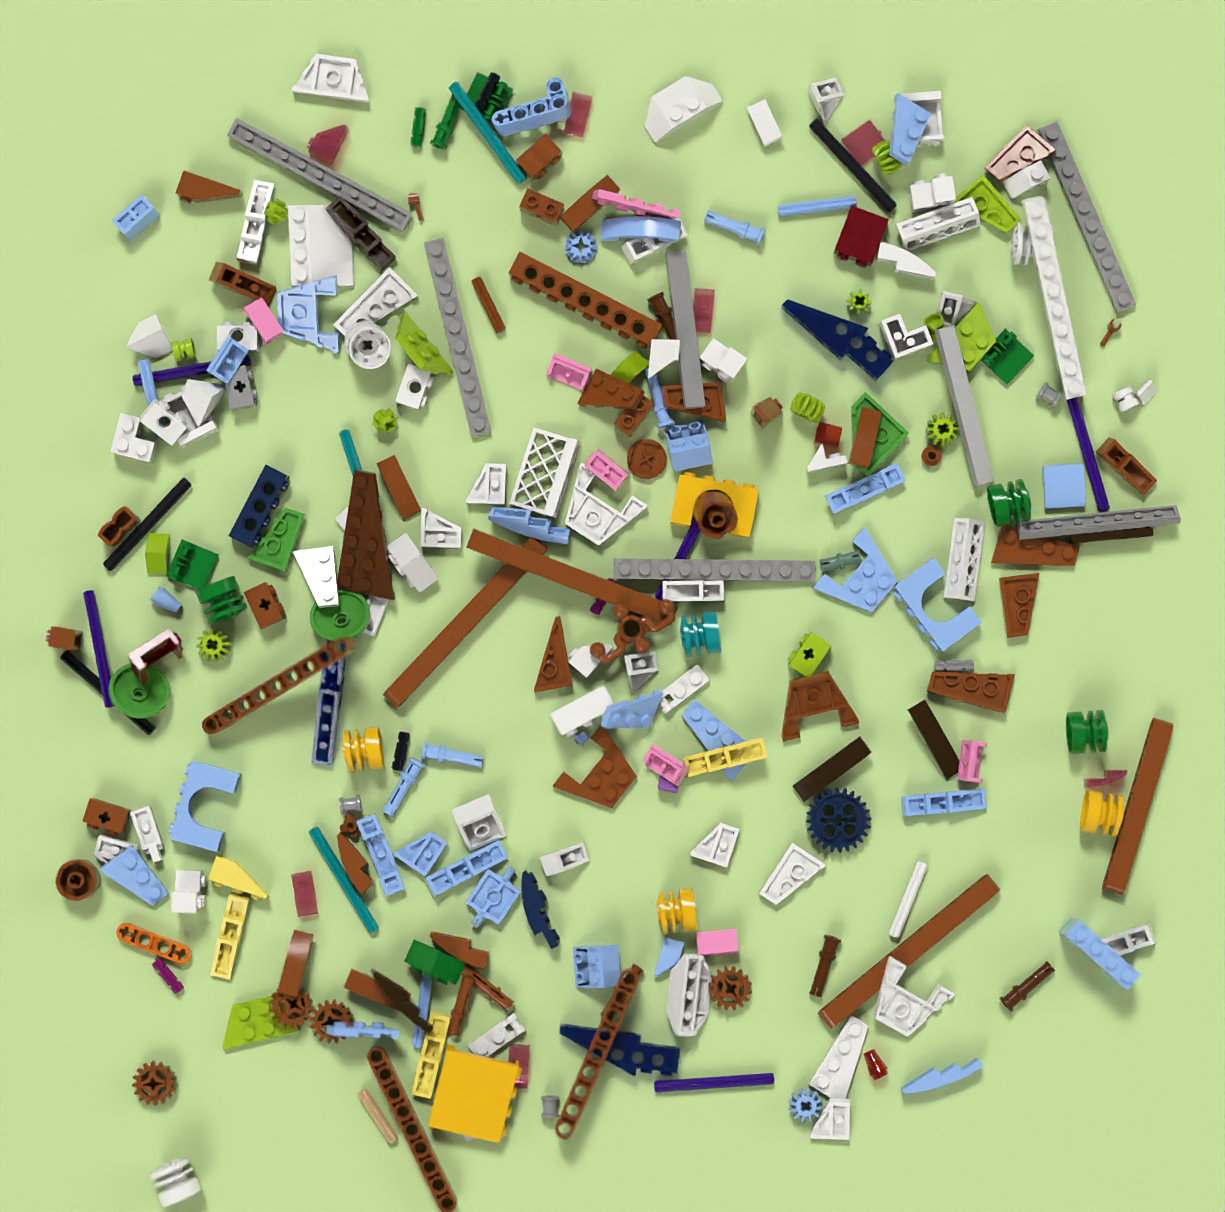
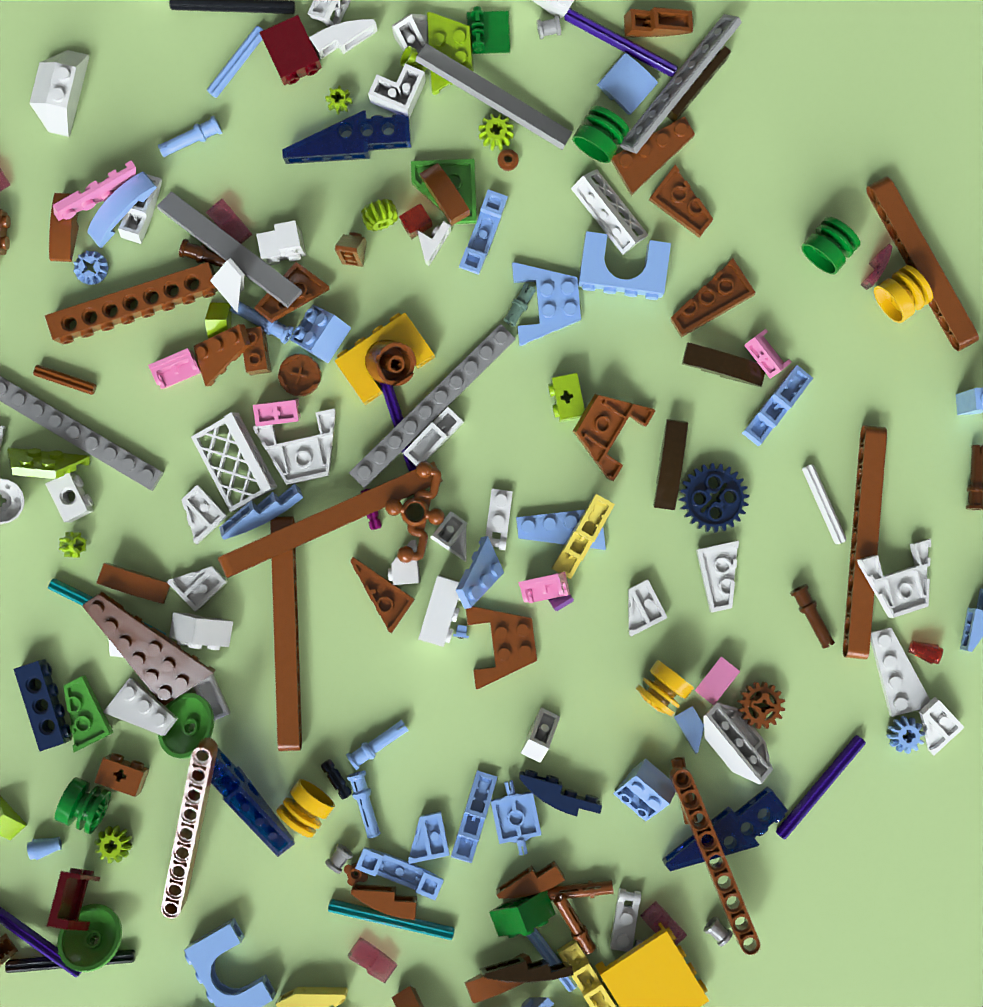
camera: 50 degrees left, 0 degrees up
(192, 565) = (36, 799): green hinge -> none
(479, 822) = (448, 773): white slope -> none
(541, 207) = (29, 266): dark orange brick -> none
(700, 634) = (471, 463): teal wheel -> none
(765, 122) = (134, 38): white slope -> none
(954, 665) = (684, 294): light grey axle -> none

